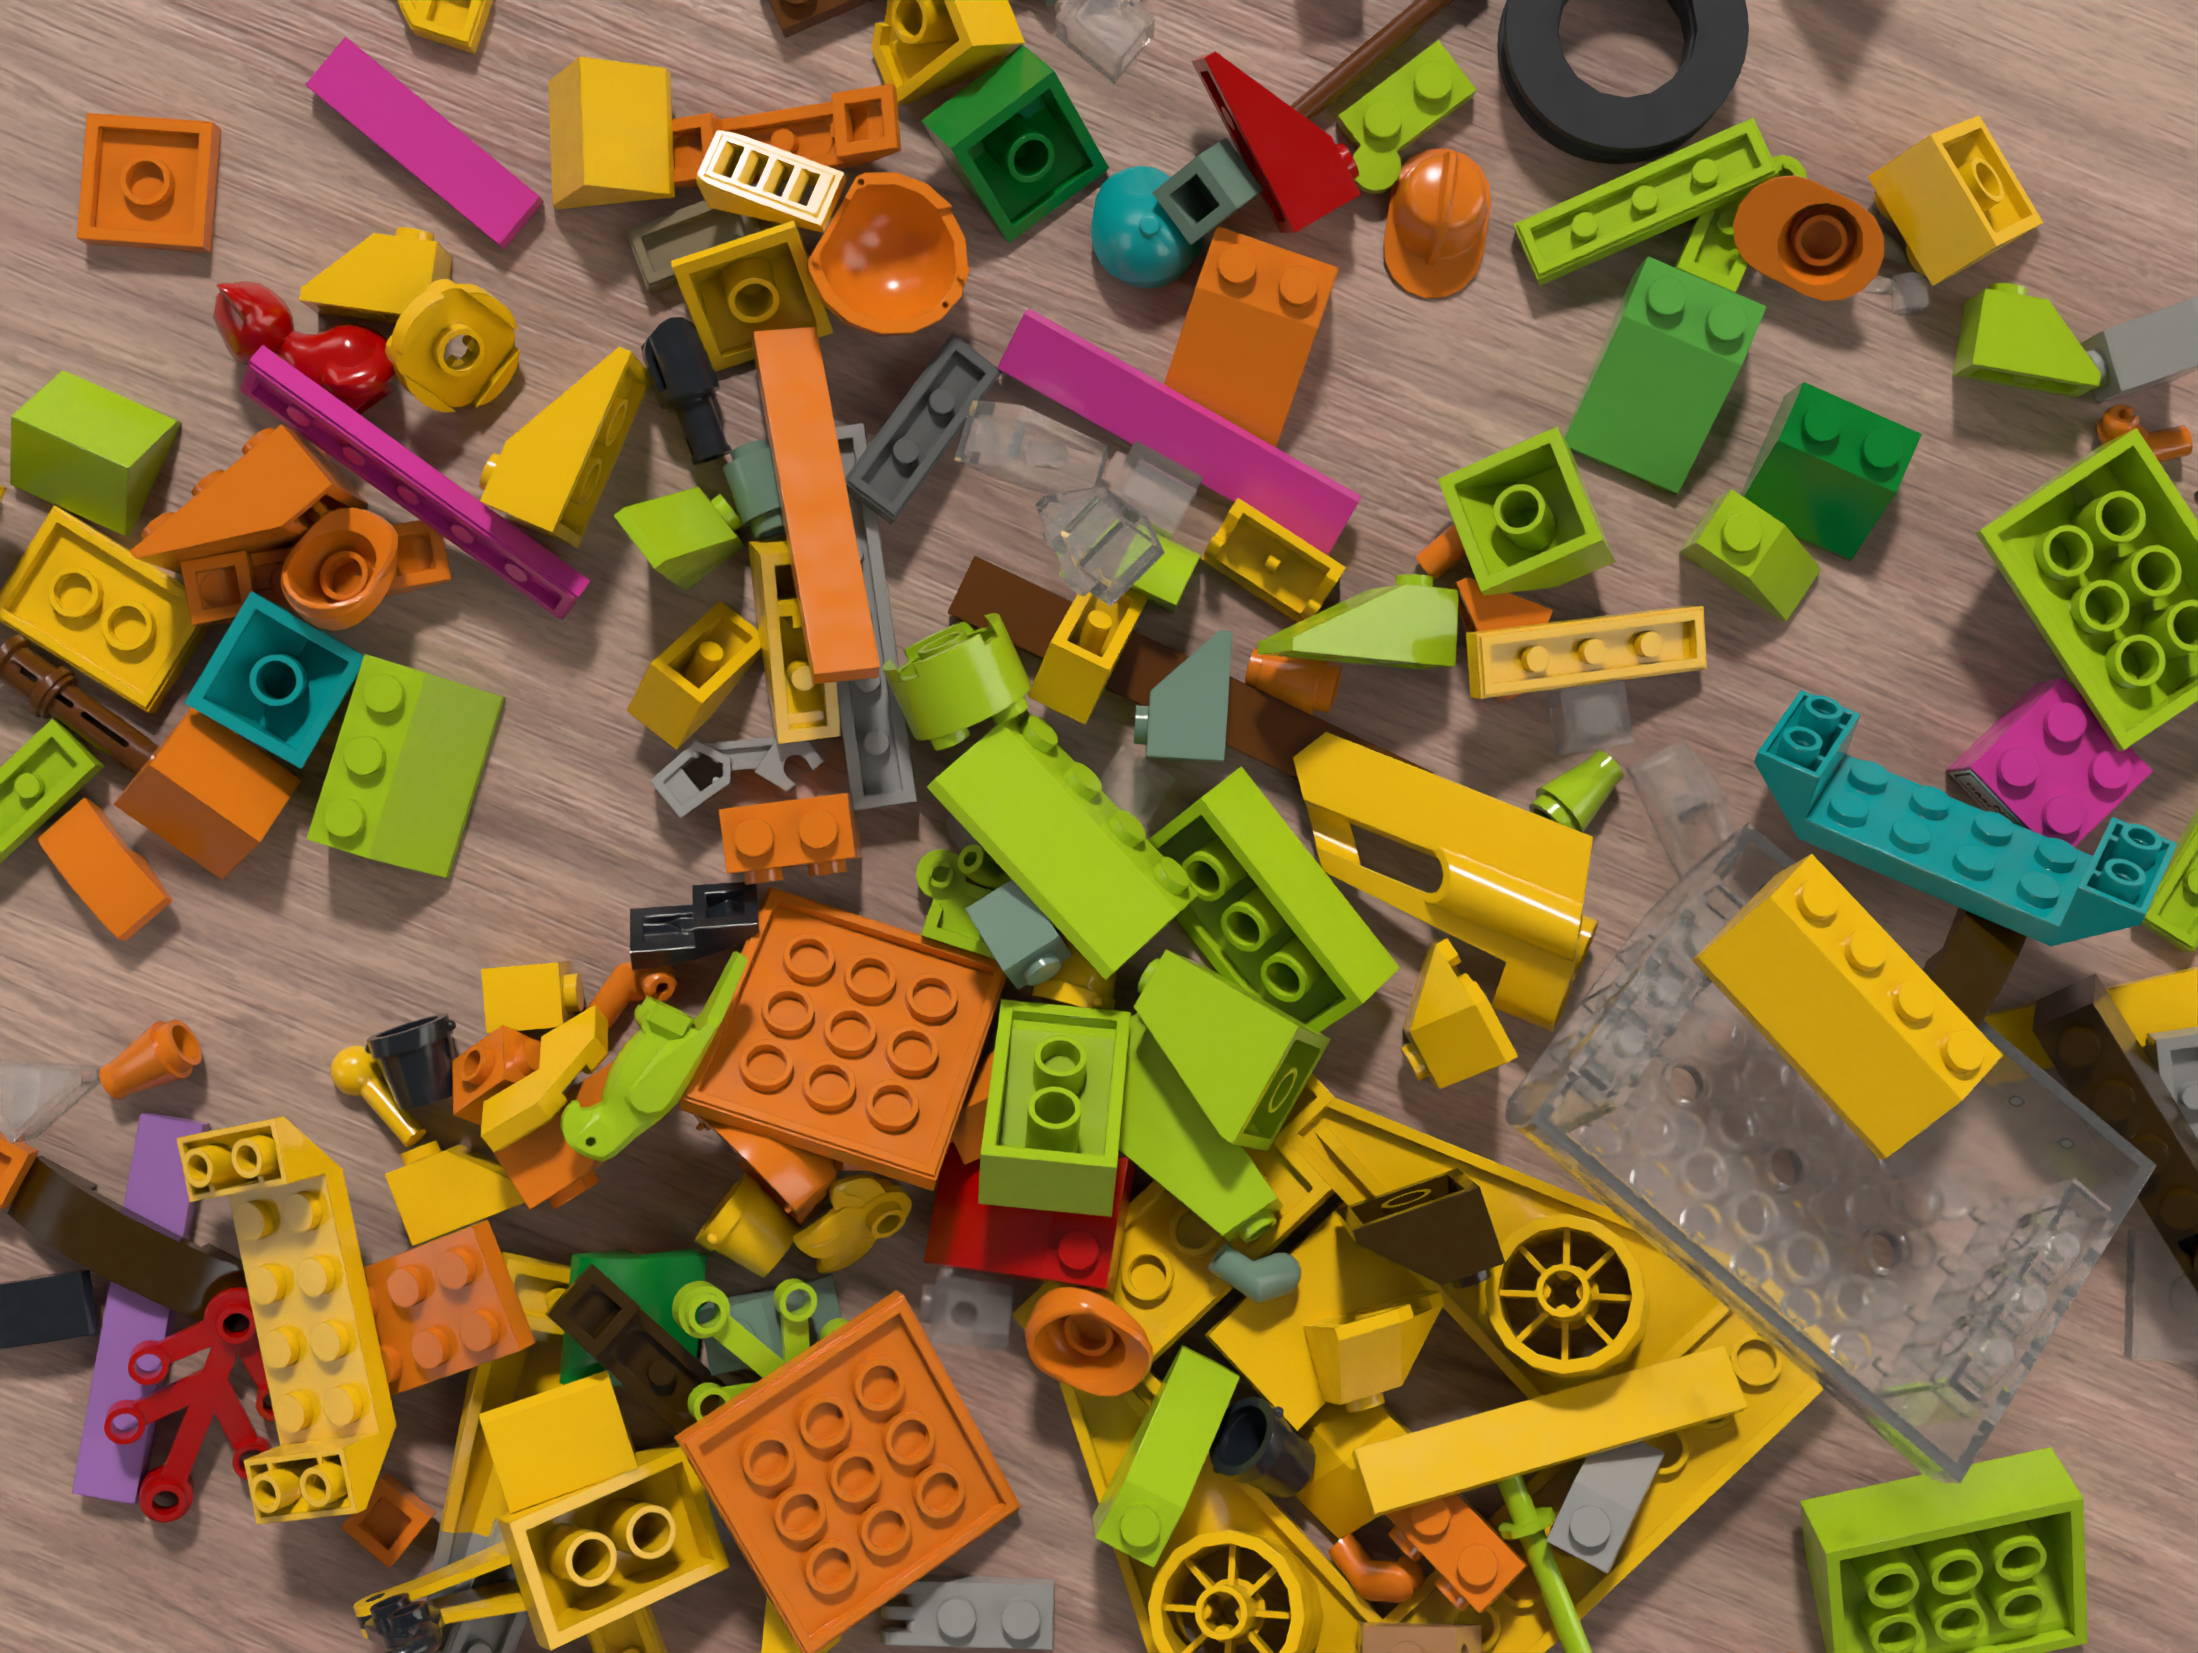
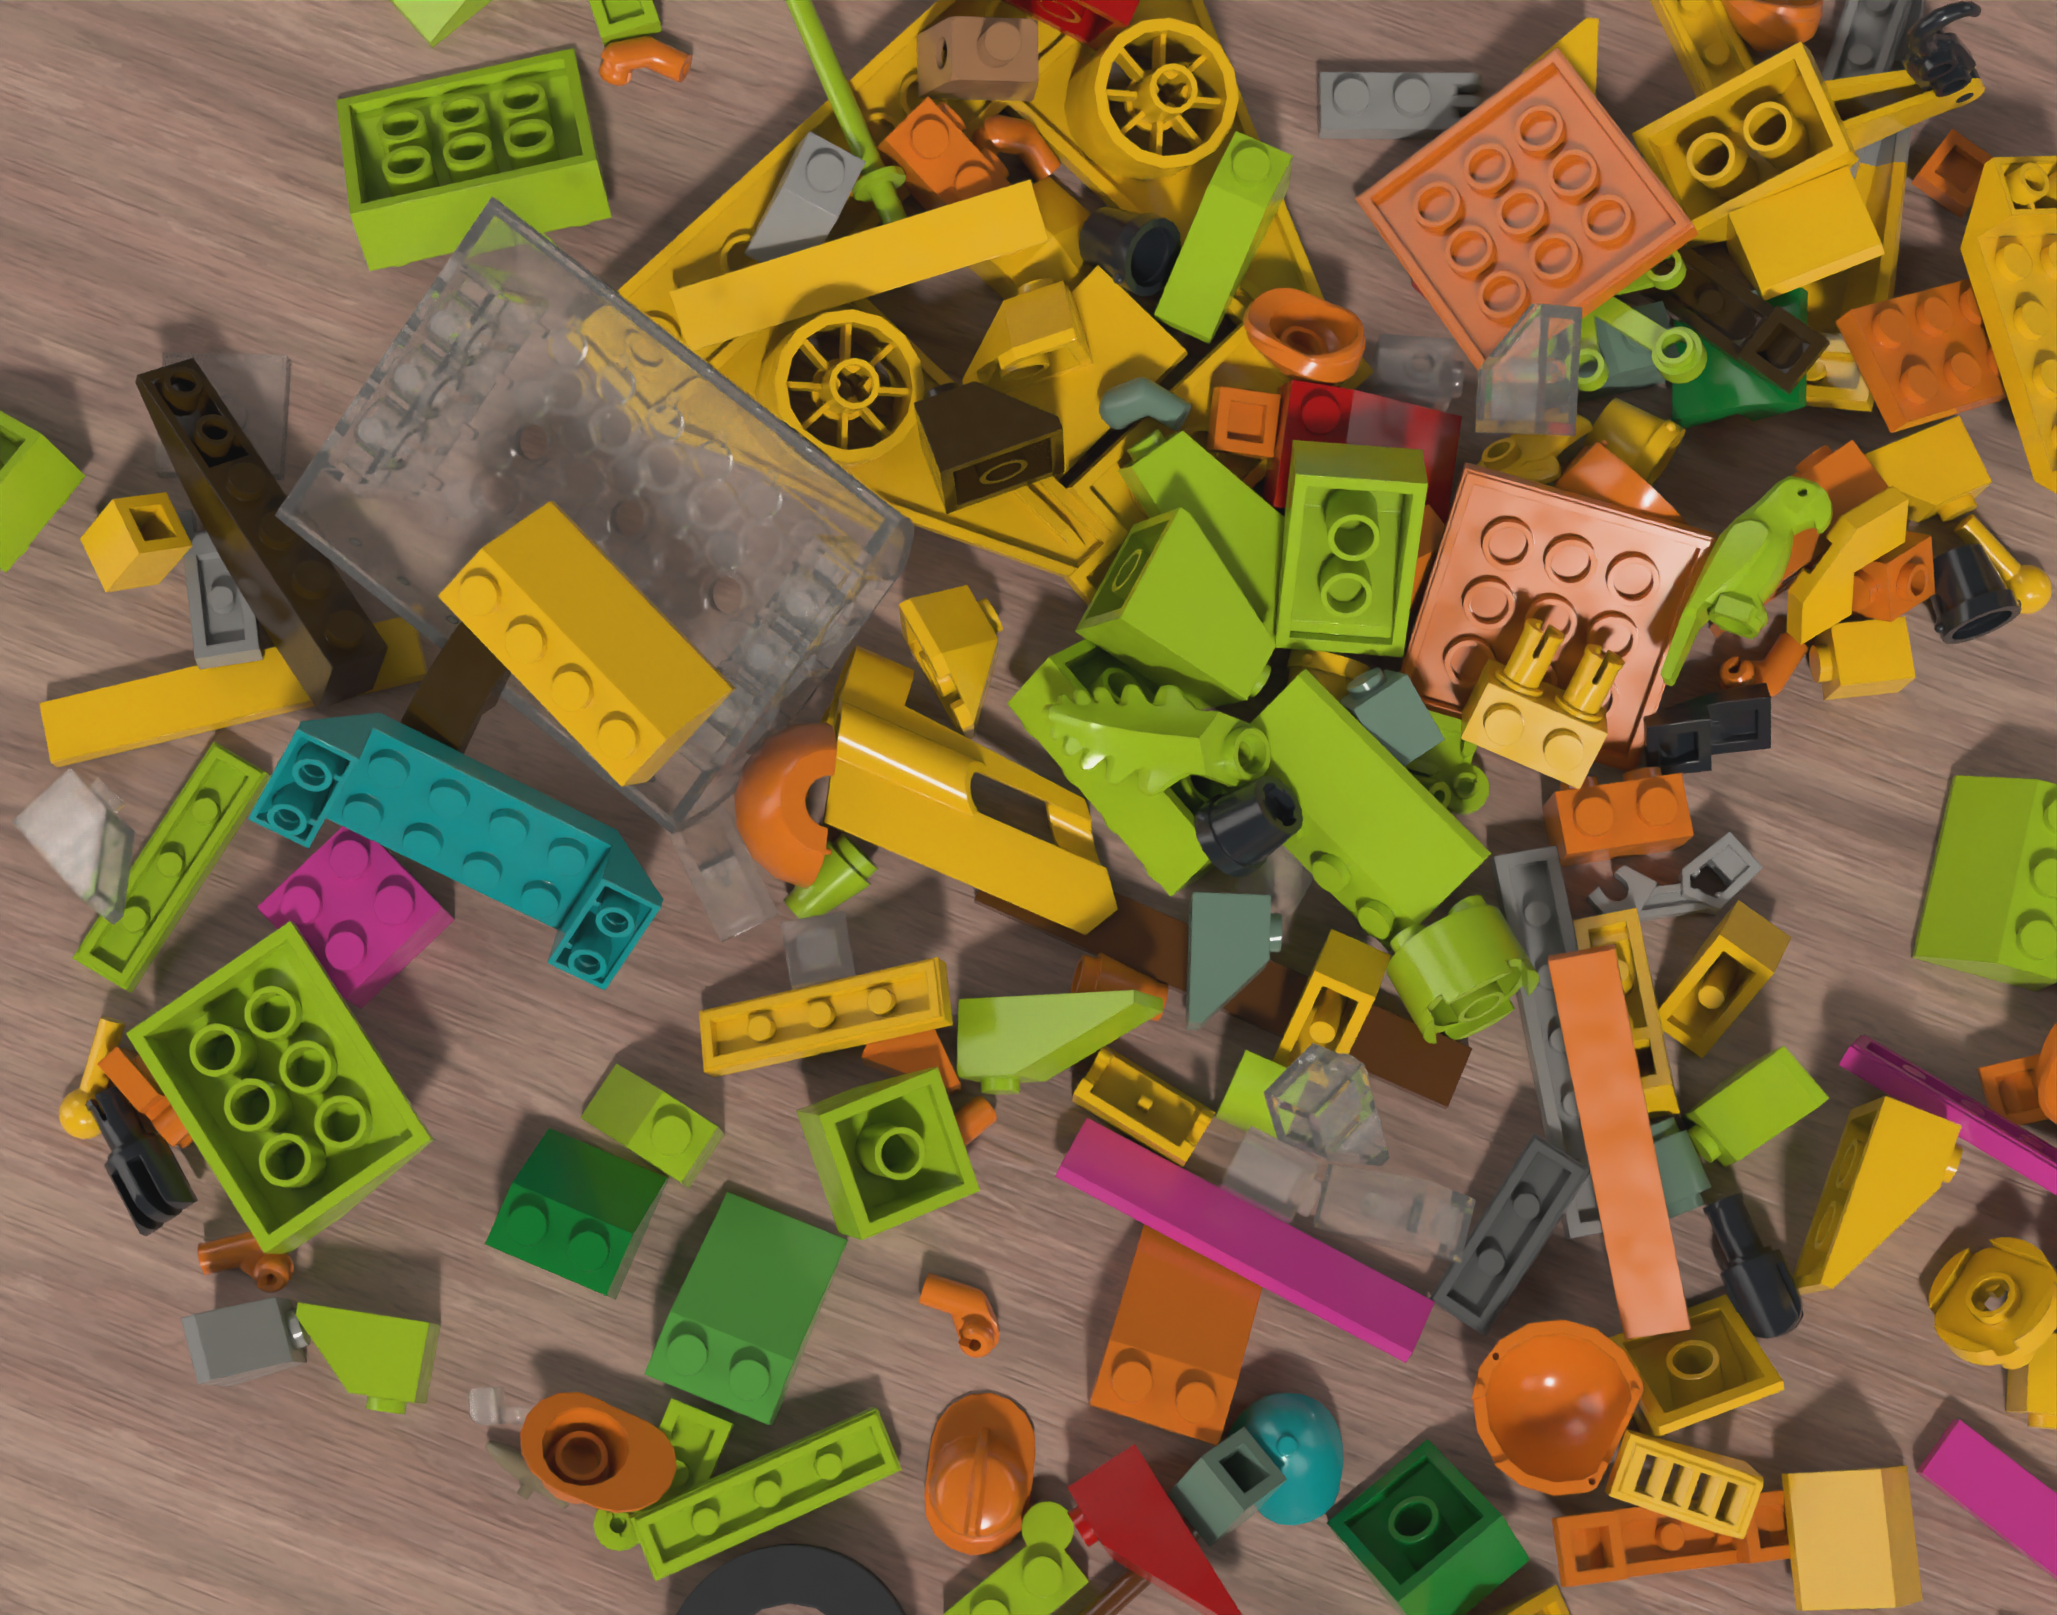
camera: 175 degrees right, 10 degrees down
(680, 235) = (1762, 1429): dark tan tile -> none
(854, 1287) = (1533, 375): none -> clear slope
(870, 931) = (1536, 721): none -> yellow brick
(1153, 1253) = (1243, 422): none -> orange plate
(1169, 823) = (1247, 825): none -> black piece
(1257, 912) = (1157, 738): none -> lime plant
(1445, 371) = (969, 1311): none -> orange arm
(1639, 863) = (773, 804): none -> orange cylinder
(1953, 199) = (437, 1505): yellow slope -> none

